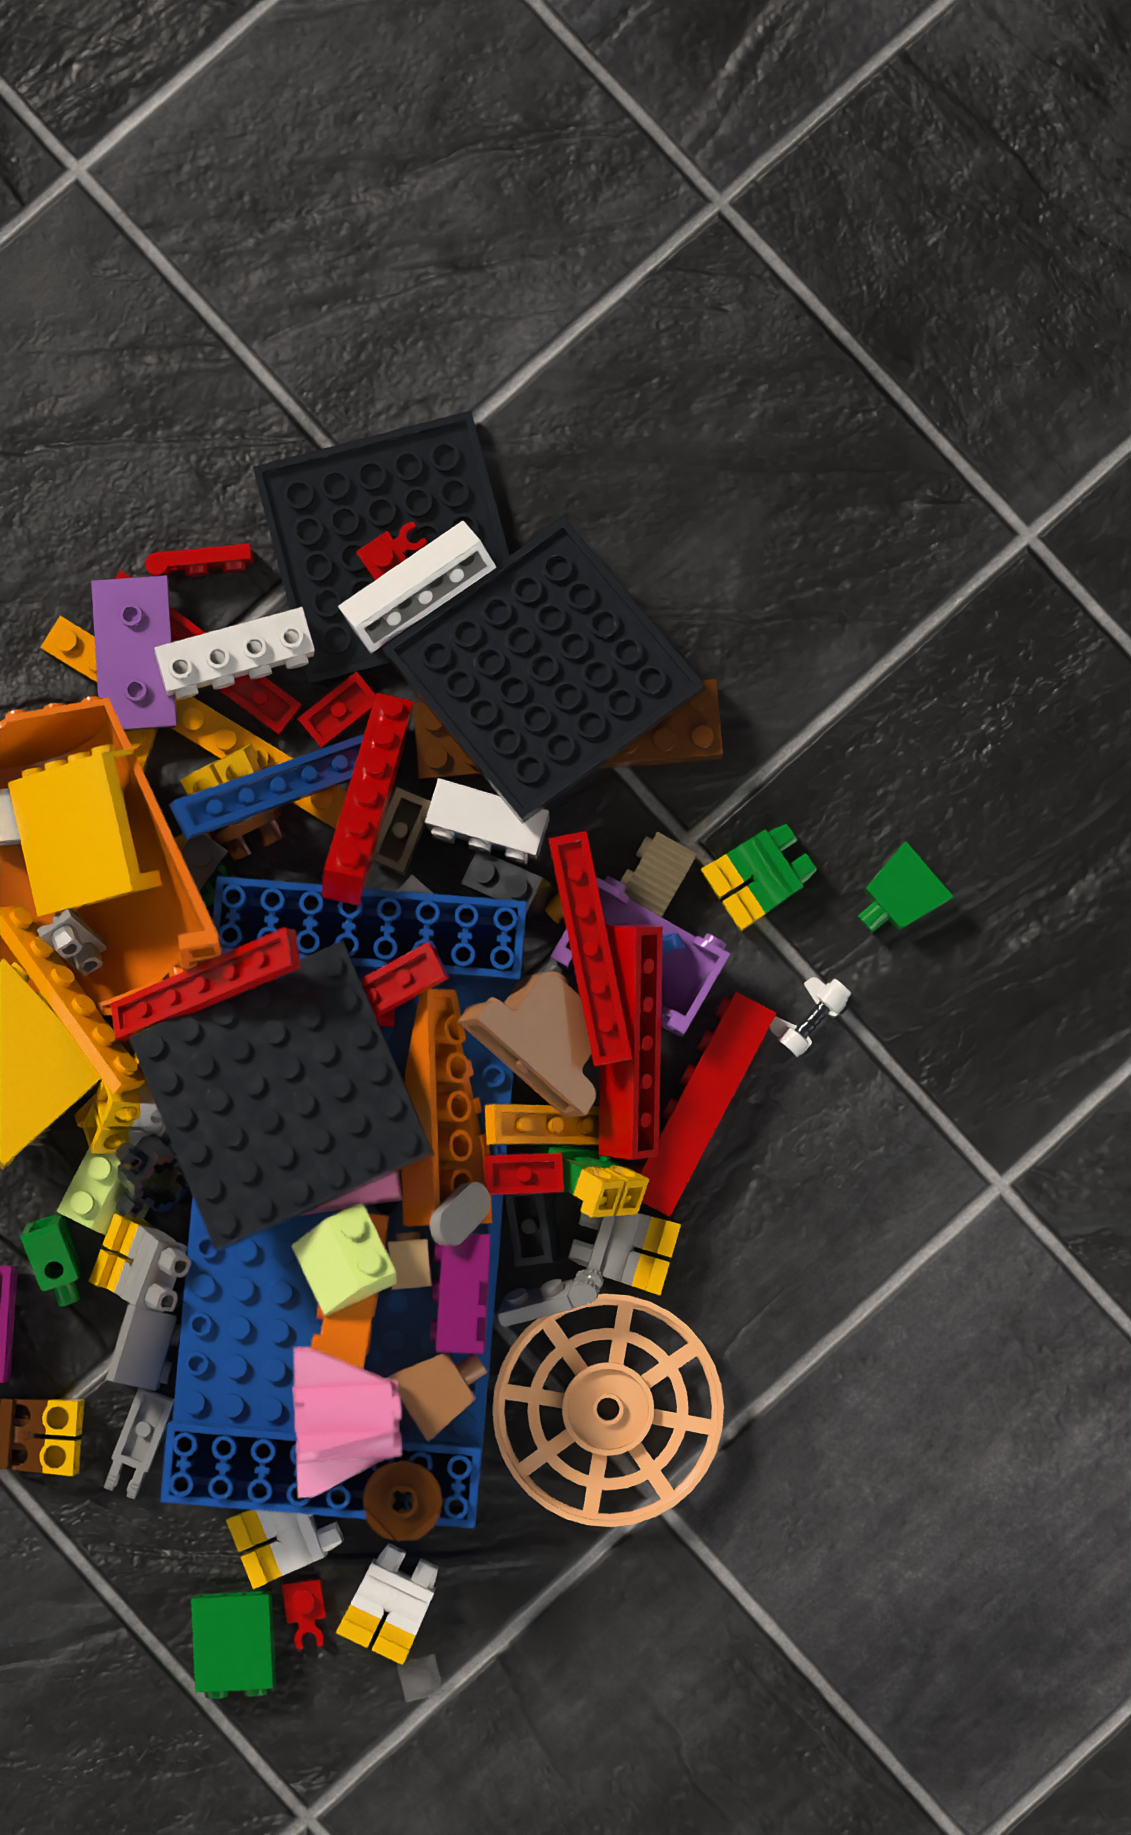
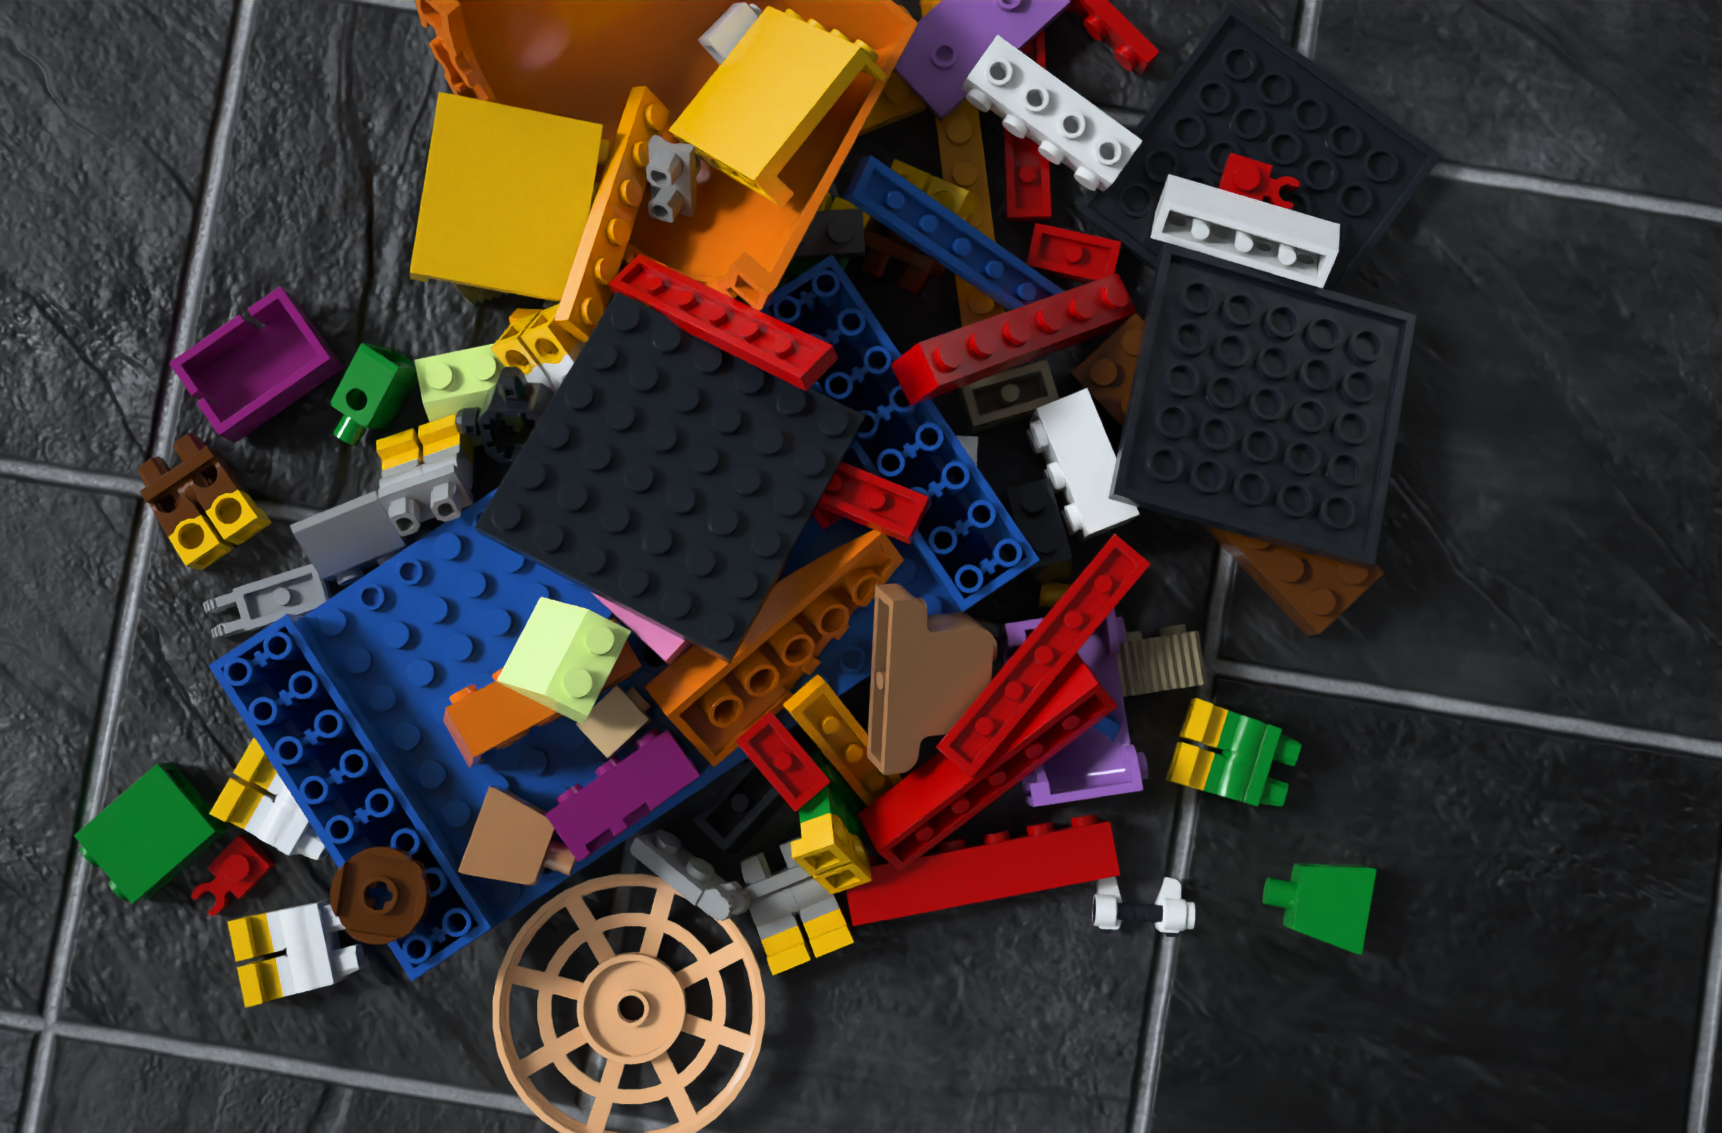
camera: 50 degrees right, 0 degrees up
(341, 1420) = (409, 775): bright pink brick -> none
(420, 1678) = (252, 1031): clear plate -> none
(460, 1214) = (695, 732): light grey tile -> none

